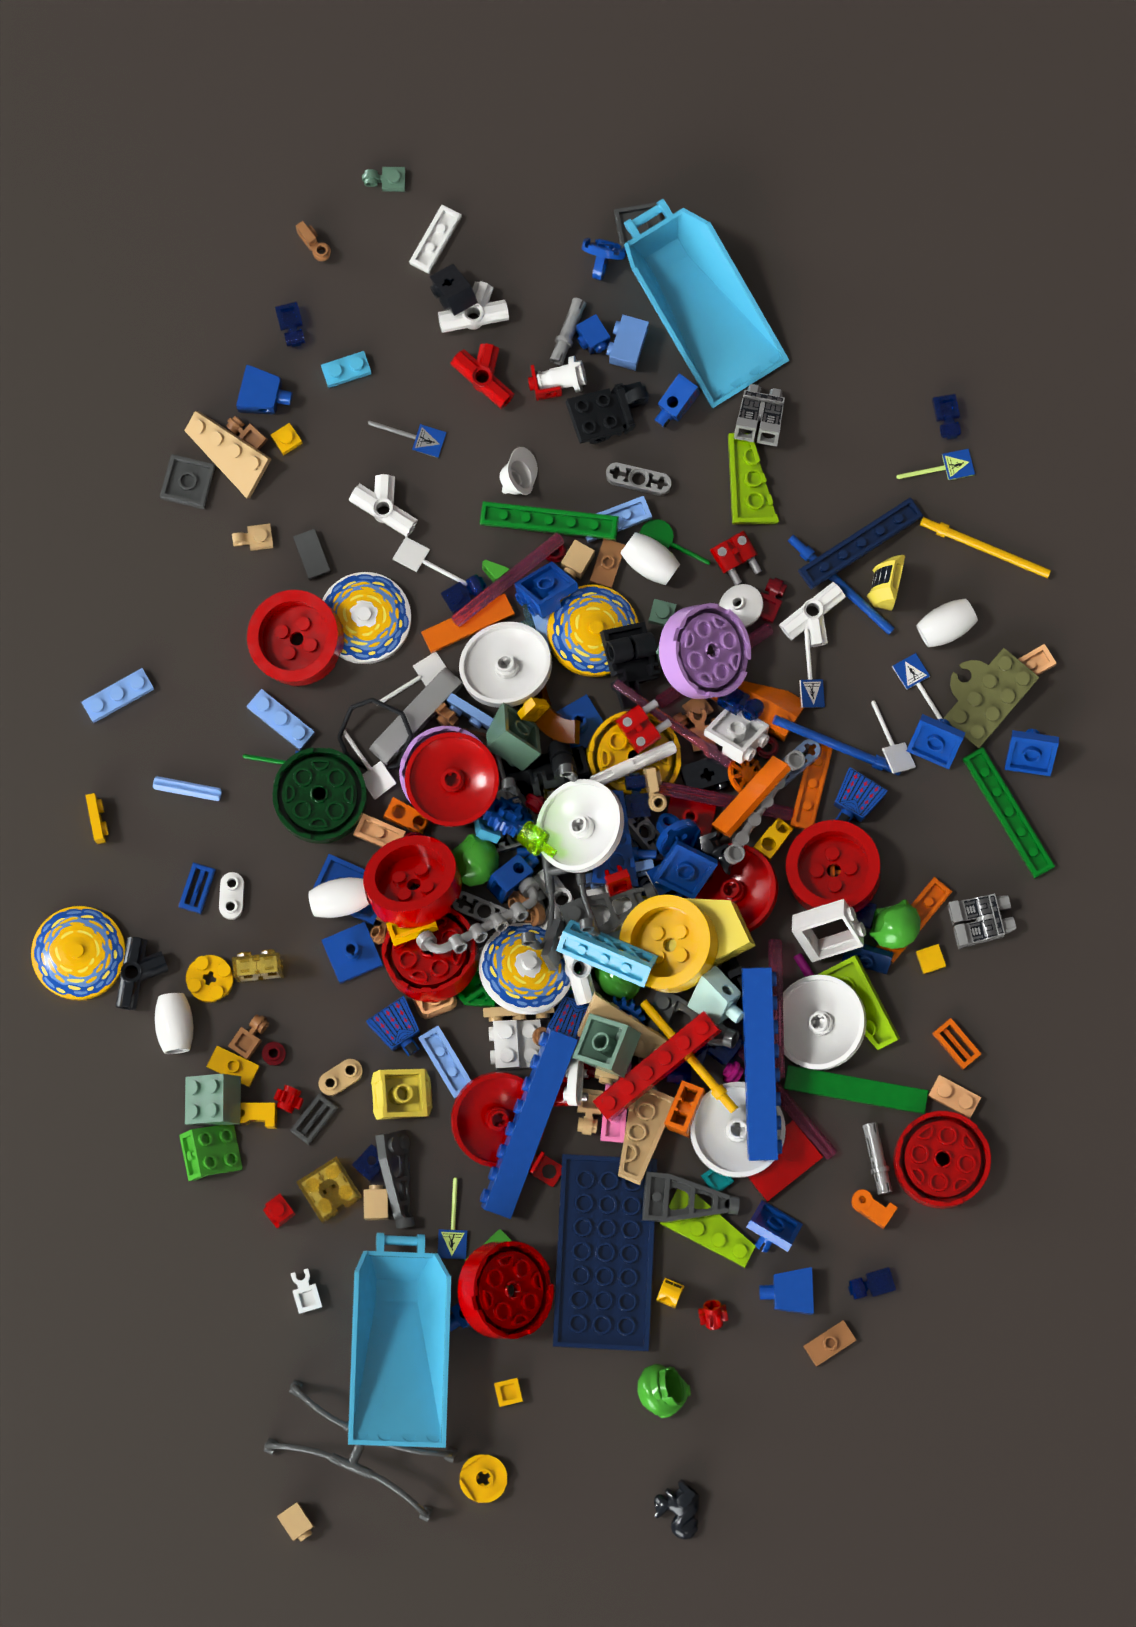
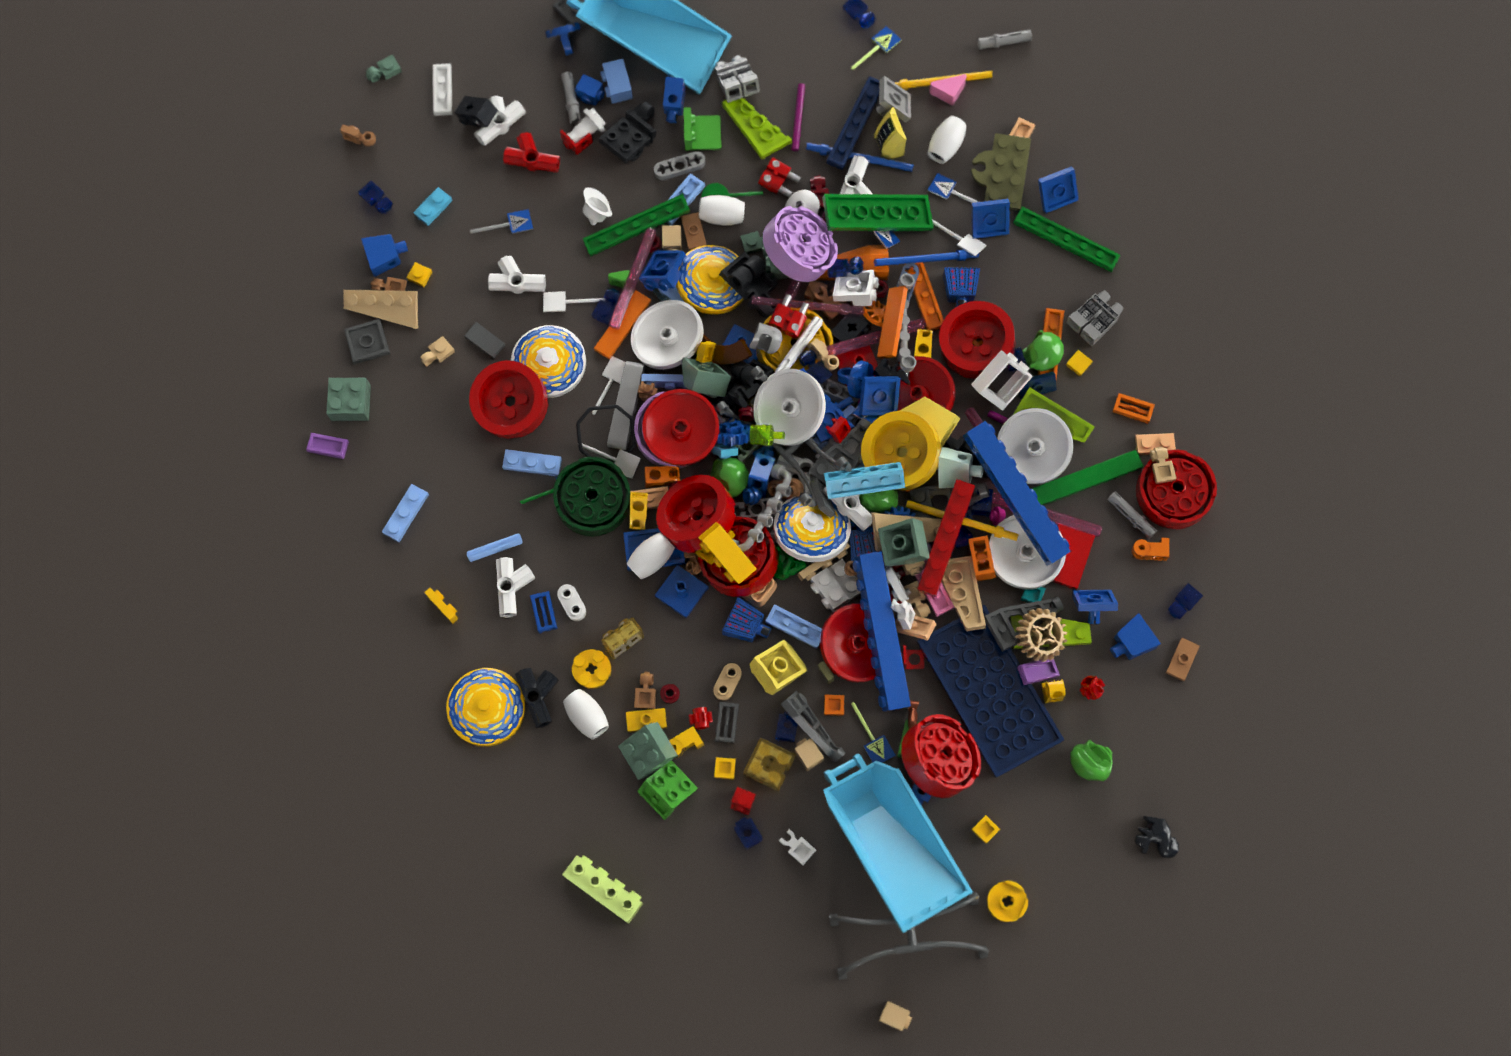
camera: 30 degrees left, 5 degrees down
(80, 573) = (327, 445): none -> medium lavender tile
(83, 1213) = (603, 889): none -> yellowish green brick
(130, 536) = (348, 399): none -> sand green brick
(189, 839) = (516, 579): none -> white piece
(258, 1255) = (747, 824): none -> clear blue brick
(281, 1165) = (724, 768): none -> yellow plate
(357, 839) = (638, 510): none -> yellow leg
(412, 946) = (726, 553): none -> yellow brick
(435, 1168) = (834, 705): none -> orange tile
(447, 1135) = (826, 672): none -> olive tile
(486, 895) = (752, 495): none -> blue plate
(507, 1230) = (912, 714): none -> copper arm
(565, 1119) = (905, 613): none -> white plate
(568, 1137) = (921, 628): none -> light nougat plate
(603, 736) = (766, 338): none -> light grey helmet
(668, 1263) = (1038, 671): none -> medium lavender tile
(683, 1231) = (1051, 634): none -> tan gear
(685, 454) = (701, 131): none -> bright green bracket
(803, 498) = (798, 117): none -> magenta bar
(816, 662) = (877, 212): none -> green plate
(917, 543) = (893, 96): none -> light grey tile
(935, 1132) = (1162, 470): none -> tan plate
(989, 565) = (948, 89): none -> bright pink slope
(1088, 542) = (1005, 39): none -> light grey pin

